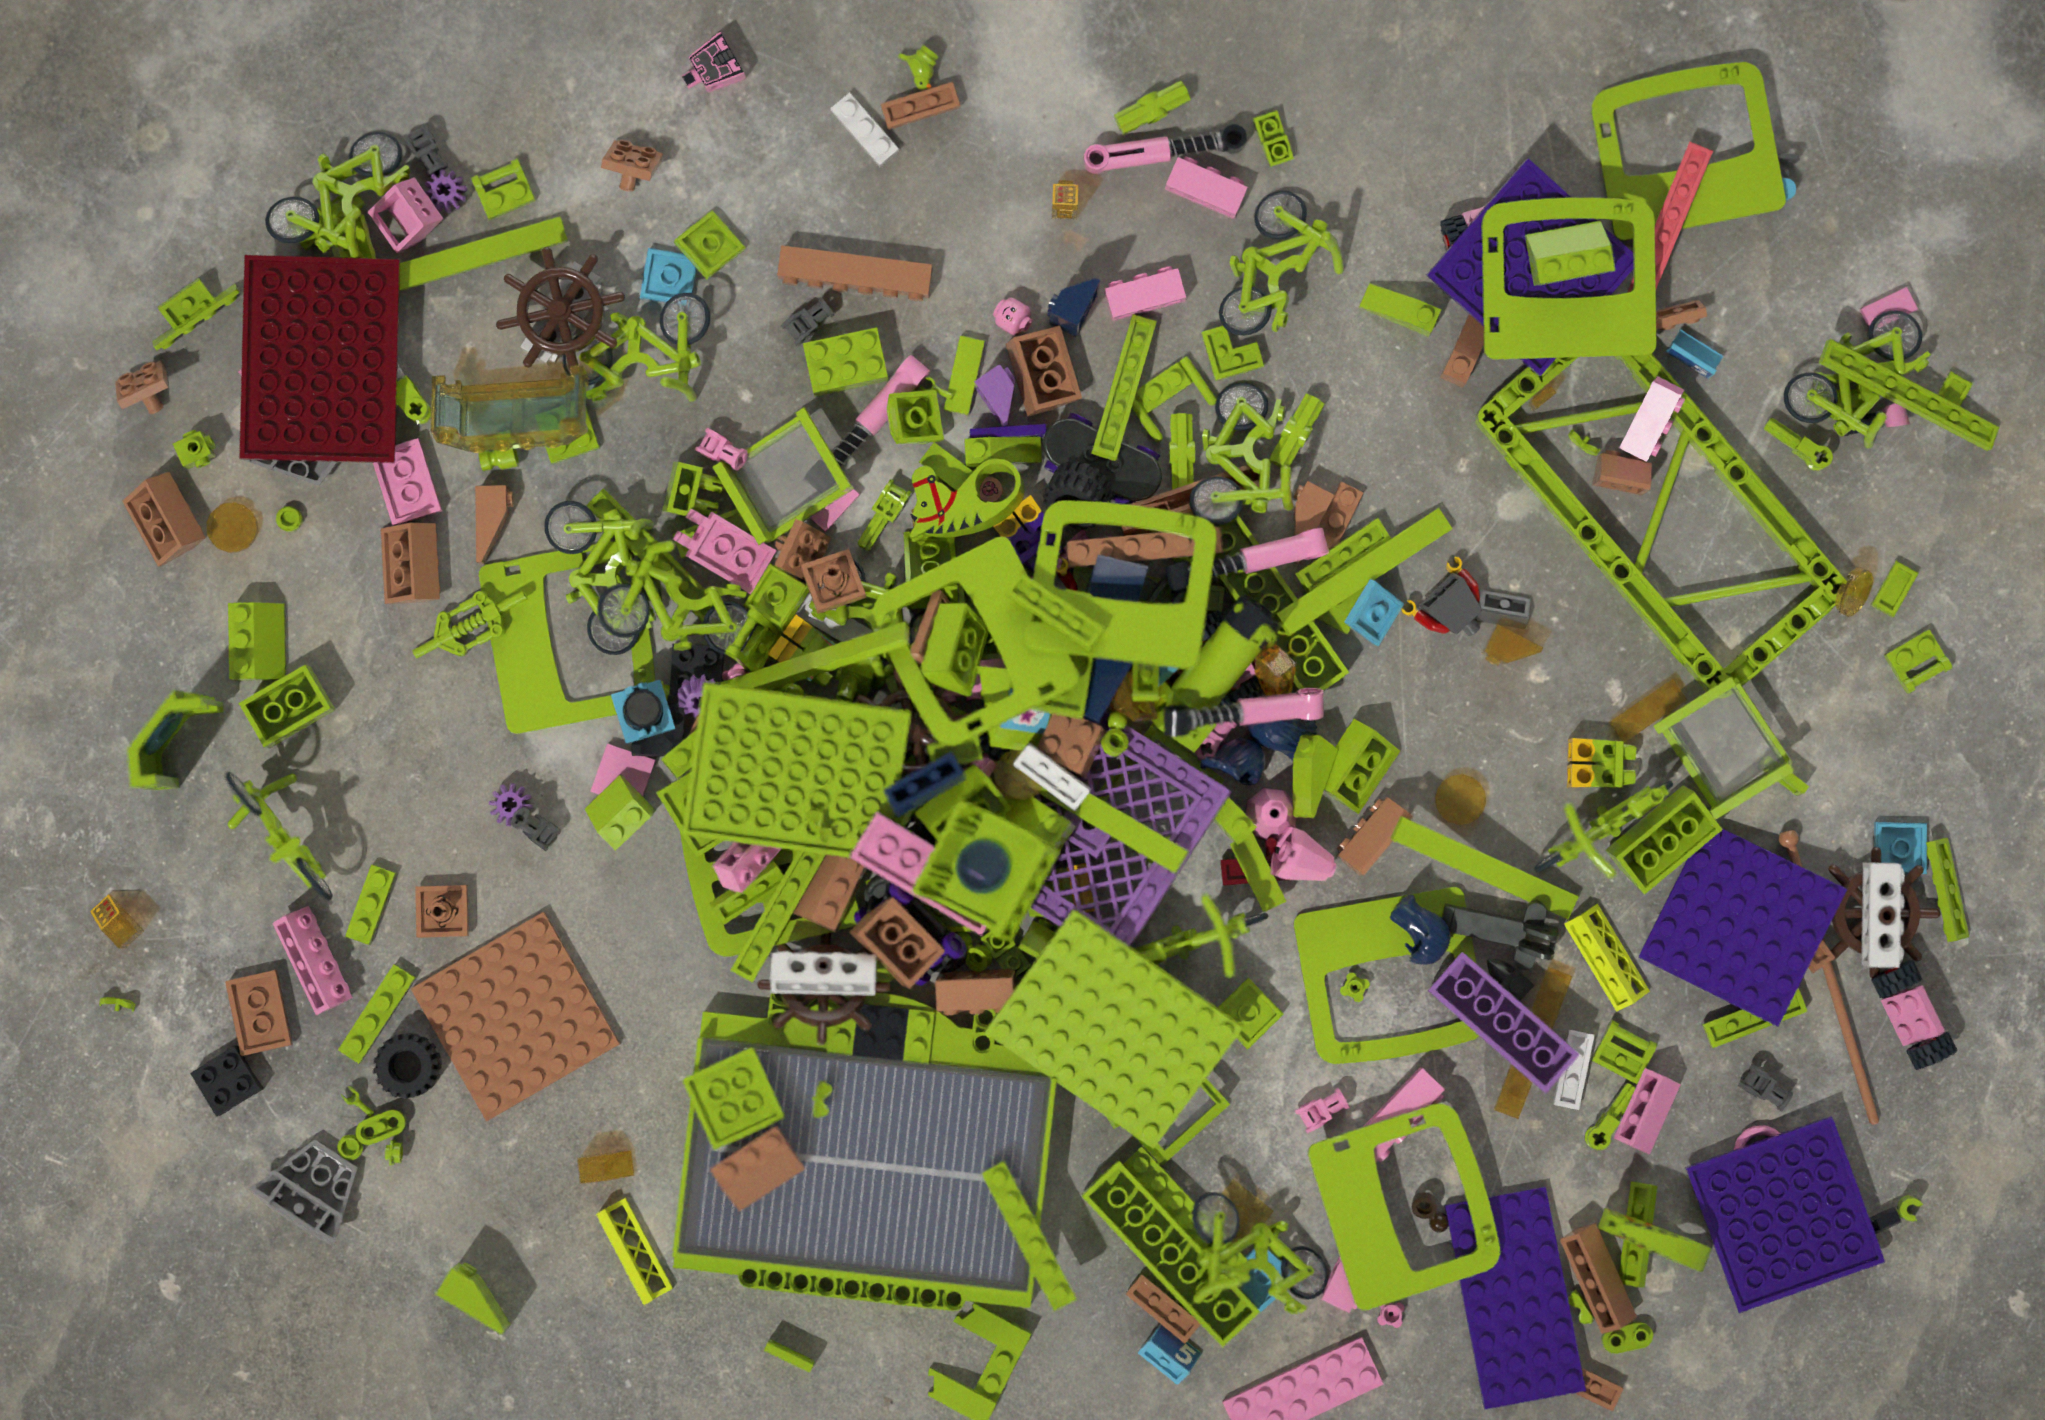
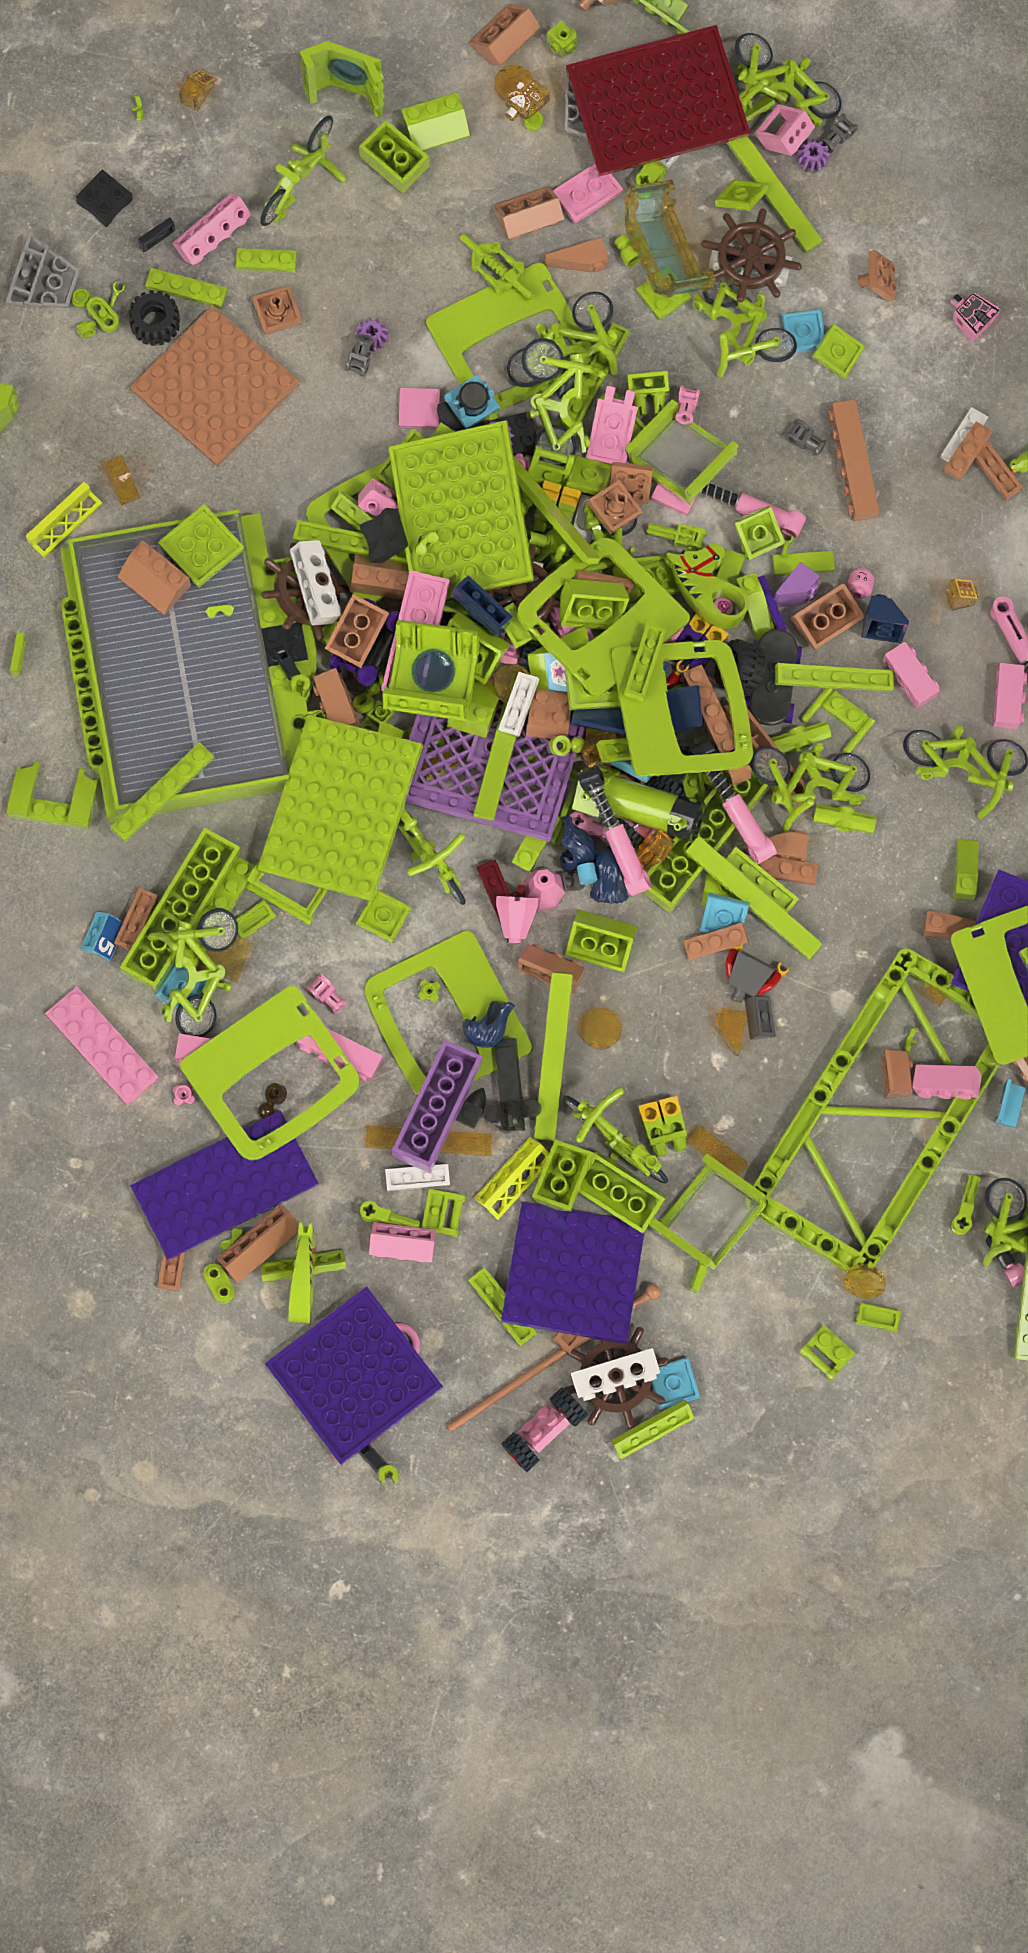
camera: 70 degrees right, 10 degrees down
(258, 1012) = (160, 203): nougat plate -> none
(260, 521) = (525, 97): none -> clear yellow torso
(297, 1030) = (156, 234): none -> black tile
(473, 296) = (741, 195): none -> lime plate
(506, 197) = (824, 201): lime plate -> none
(619, 812) = (390, 411): lime slope -> none
(790, 872) = (384, 535): none -> black brick
(845, 362) = (784, 472): lime brick -> none
(888, 132) = (967, 451): none -> nougat plate
(918, 1035) = (291, 670): none -> black piece
(1204, 1168) = (254, 919): none -> lime tile
(1228, 361) = (882, 750): lime plate -> none
(1258, 873) = (496, 886): lime tile -> none
(1274, 767) = (584, 876): none -> leg
(1310, 773) = (588, 902): lime slope -> none
(1400, 632) = (716, 941): none -> nougat plate
(1629, 902) = (562, 1176): none -> lime slope
(1762, 1085) = (449, 1330): dark grey connector -> none

